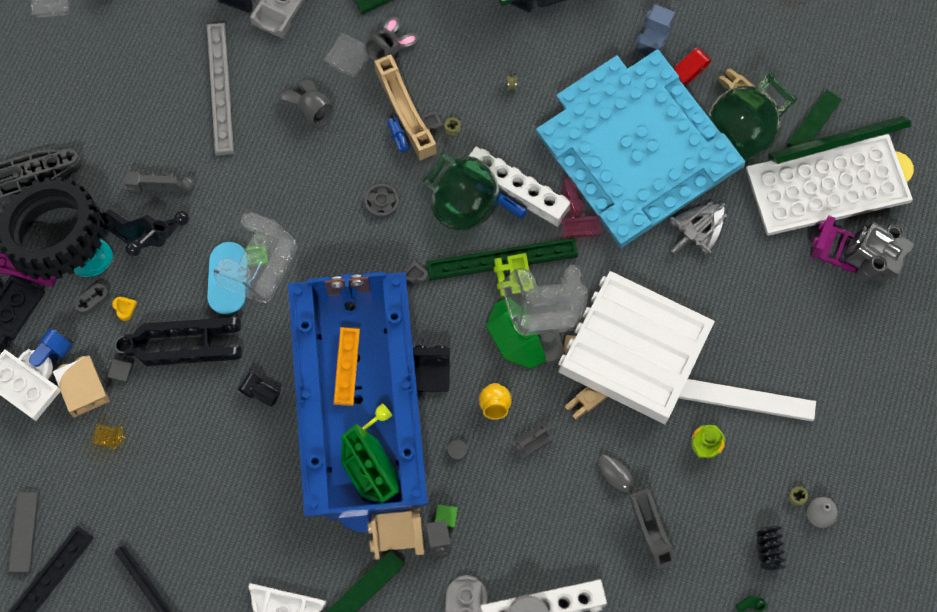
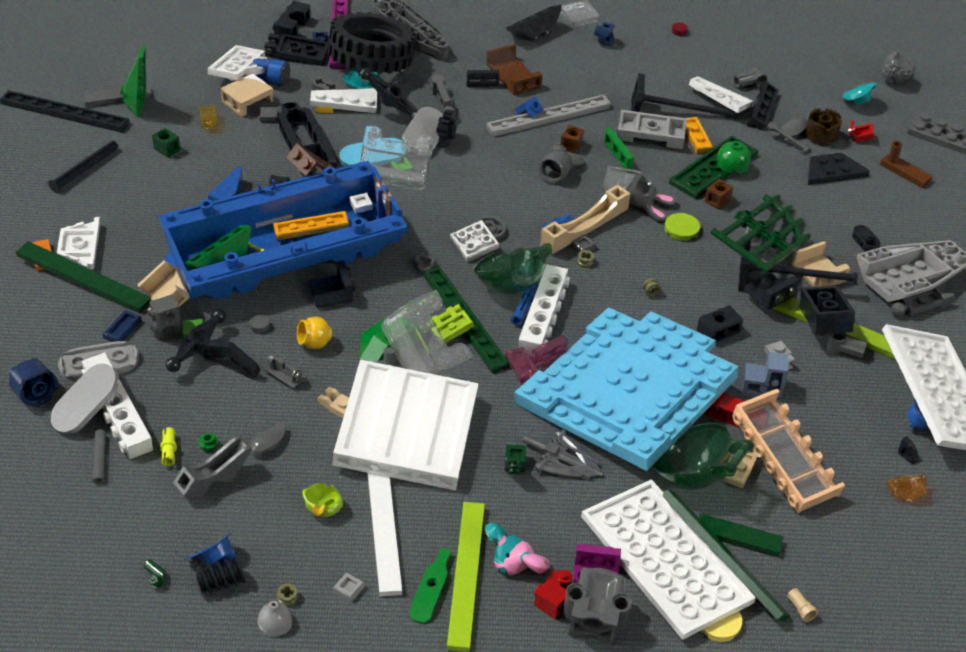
camera: 70 degrees right, 25 degrees down
(42, 503) = (135, 85): none -> green wedge
(60, 49) = (536, 24): none -> black wedge
(125, 283) = (348, 99): none -> white wing
(133, 99) = (512, 71): none -> reddish brown panel
(139, 133) = (486, 78): none -> black tile
(147, 493) = (166, 142): none -> dark green brick
(206, 101) = (531, 107): none -> blue bracket
(212, 216) = (423, 123): none -> light grey tile
(224, 193) = (446, 127): none -> black gear
(252, 441) = (229, 186): none -> blue slope
(267, 338) = (306, 160): none -> reddish brown panel
(274, 85) = (572, 138): none -> reddish brown brick
(304, 41) = (618, 149): none -> green tile
(333, 308) = (361, 203): none -> white plate
(399, 218) = (474, 241): none -> white tile
(423, 586) = (122, 326): none -> dark blue tile
(432, 26) = (682, 226): none -> lime tile
(478, 513) = (212, 349): none -> black piece
(577, 35) = (720, 324): none -> black brick
(603, 567) = (168, 447): none -> neon yellow pin
(604, 534) = (208, 442): none -> green plate
(621, 10) = (780, 347): none -> light grey plate
(701, 270) = (515, 459): none -> dark green bracket
(742, 550) = (217, 552): none -> blue piece
(747, 51) = (785, 451): none -> window
(799, 444) = (348, 587): none -> light grey tile
(804, 299) = (520, 552): none -> hair
(808, 345) = (465, 577): none -> lime tile
(823, 382) = (427, 596): none -> green piece
(847, 285) = (551, 594): none -> red brick
(899, 103) = (804, 608): none -> tan pin

